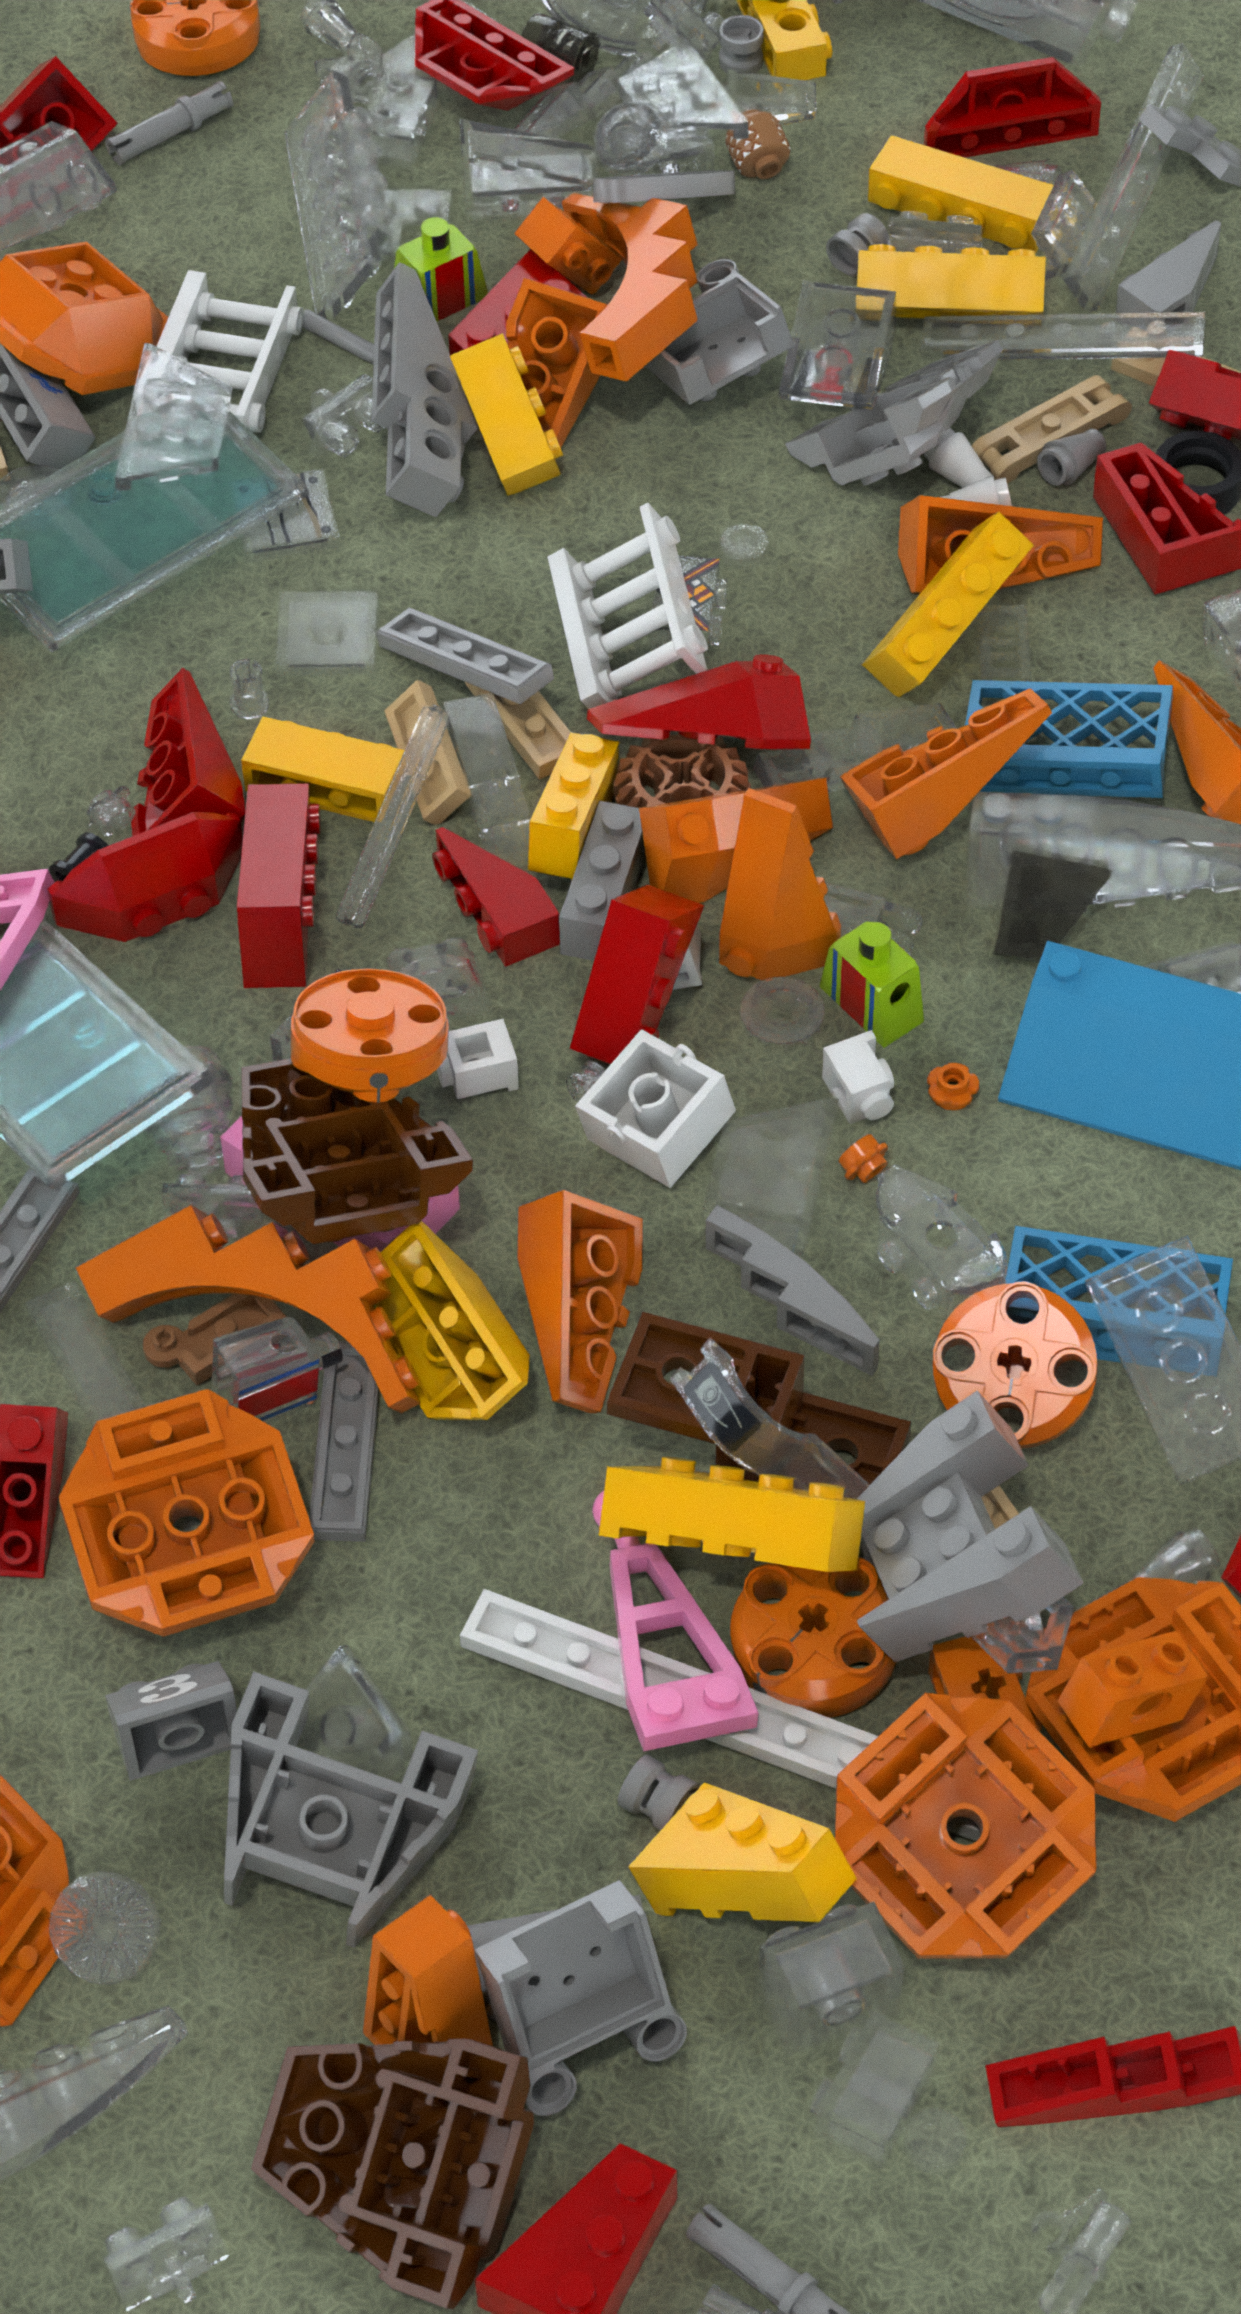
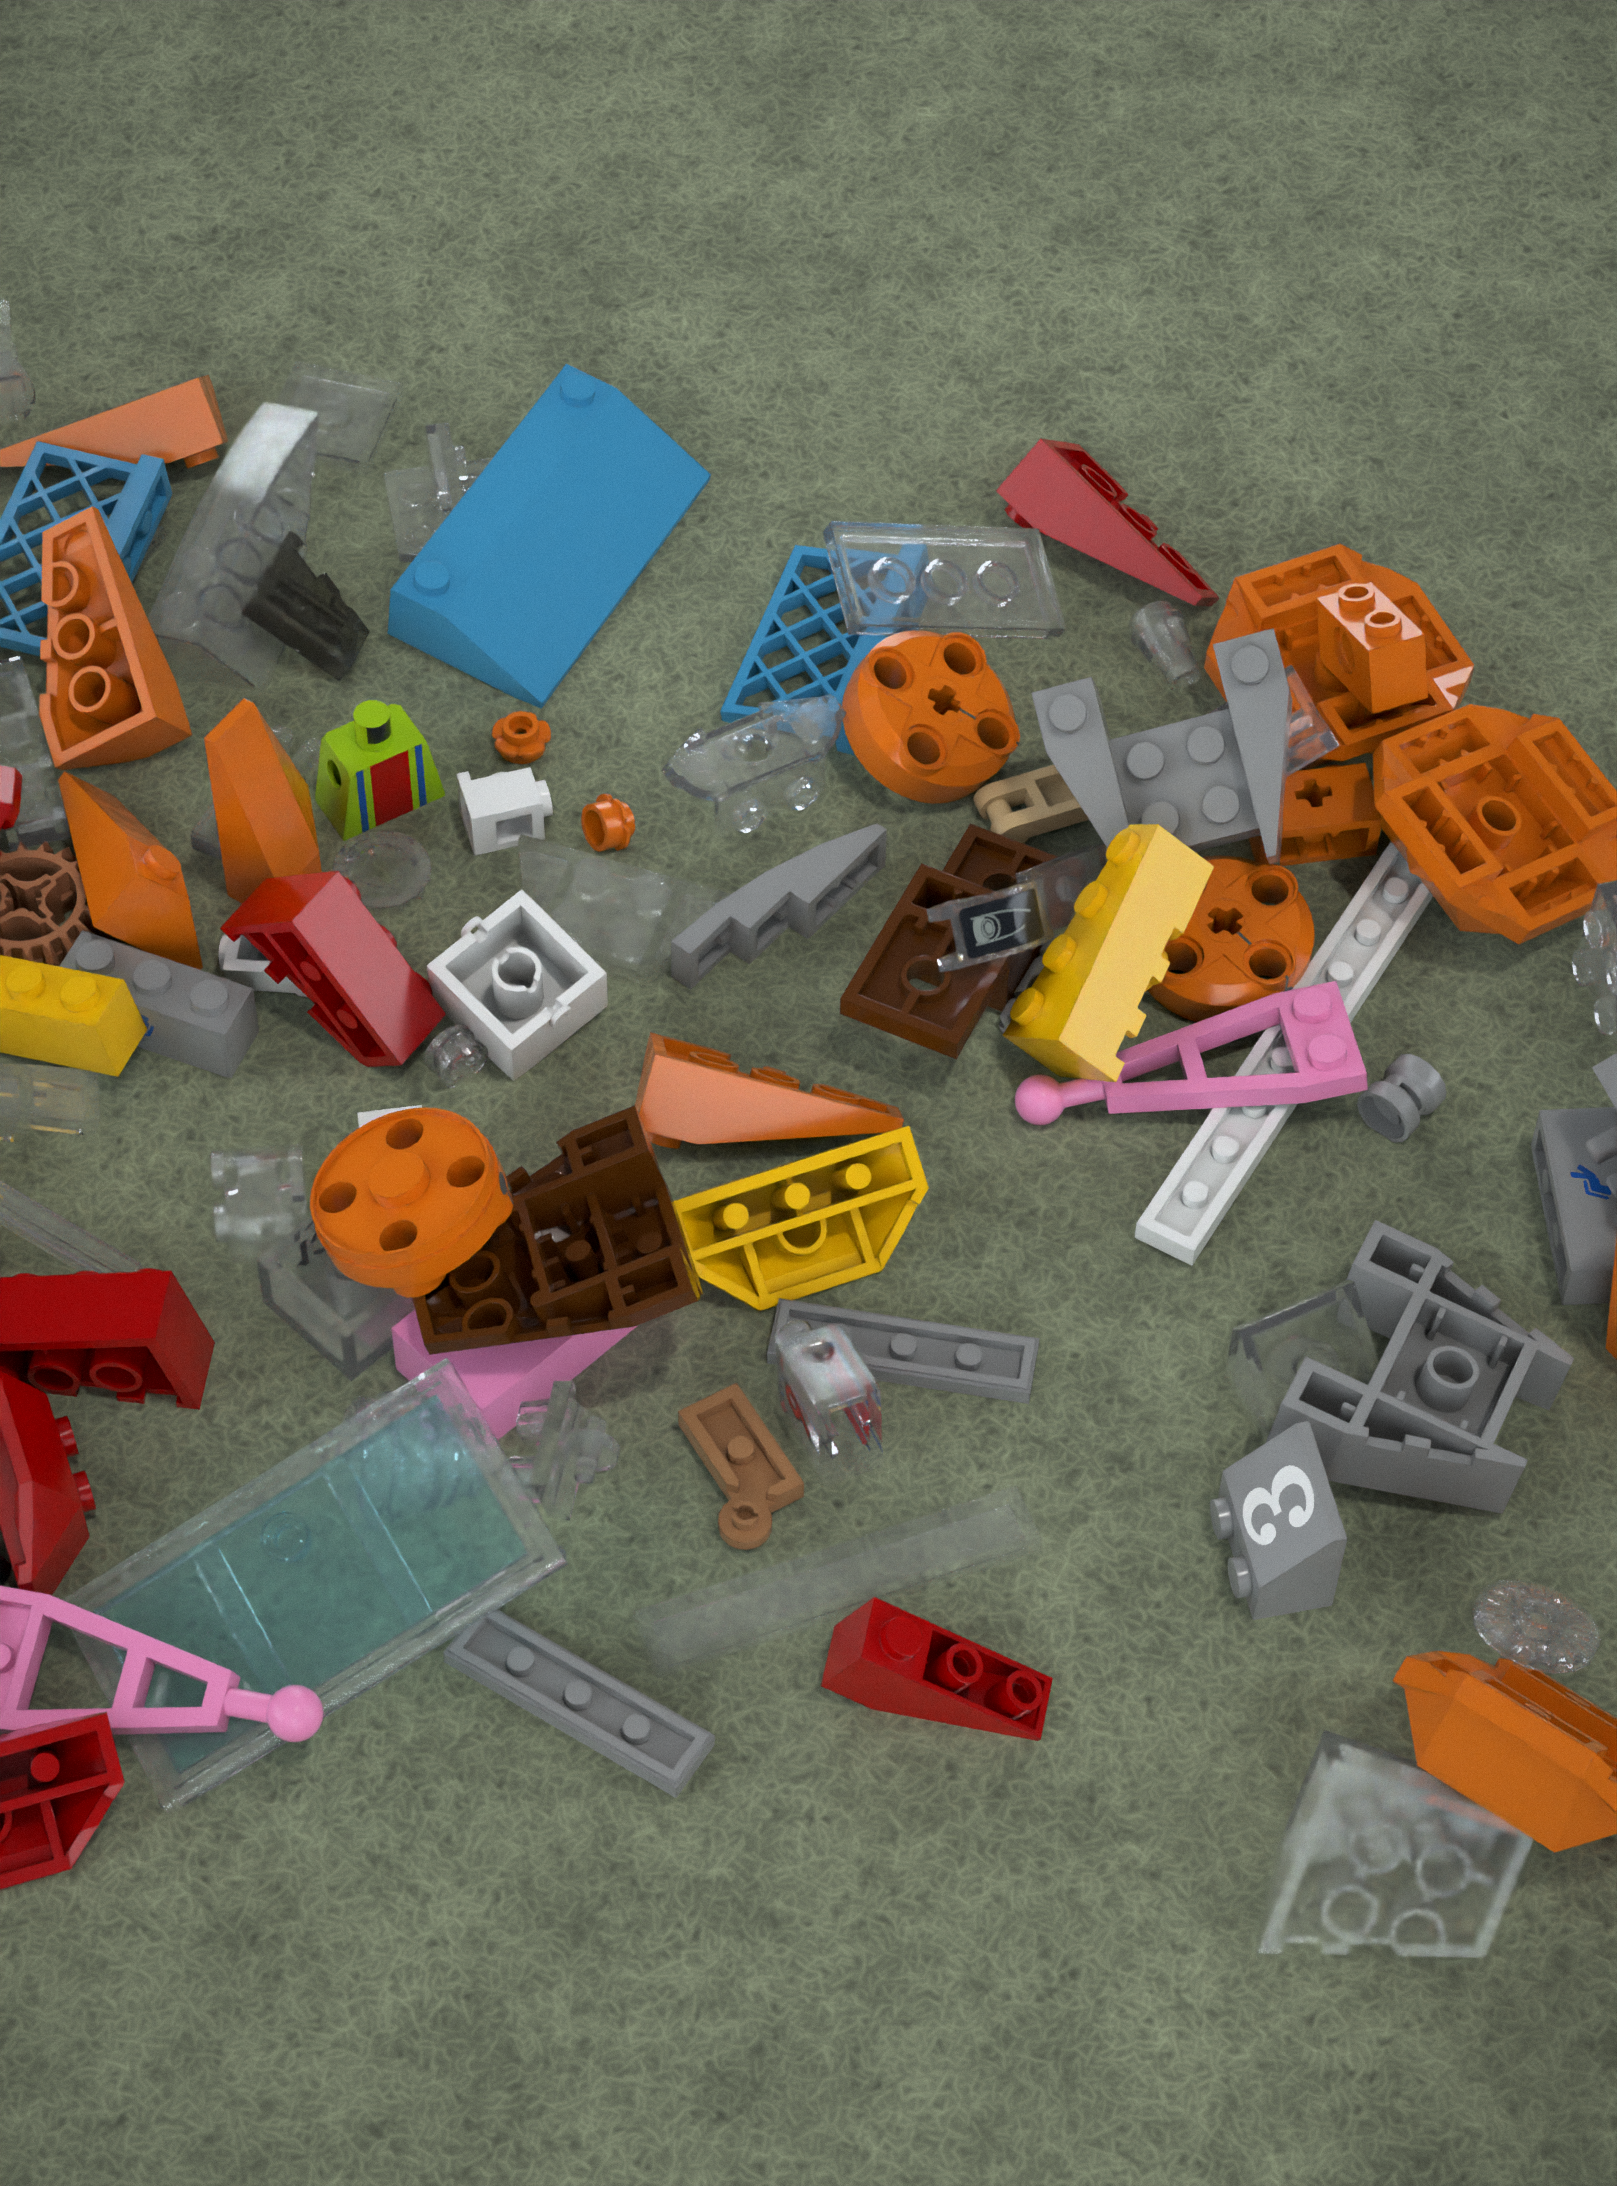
camera: 85 degrees left, 0 degrees up
(173, 1463) = (1089, 1449): orange piece -> none
(187, 1259) = (660, 1450): orange arch -> none
(506, 902) = (151, 1112): red slope -> none
(742, 1858) = (1511, 1007): yellow wedge -> none

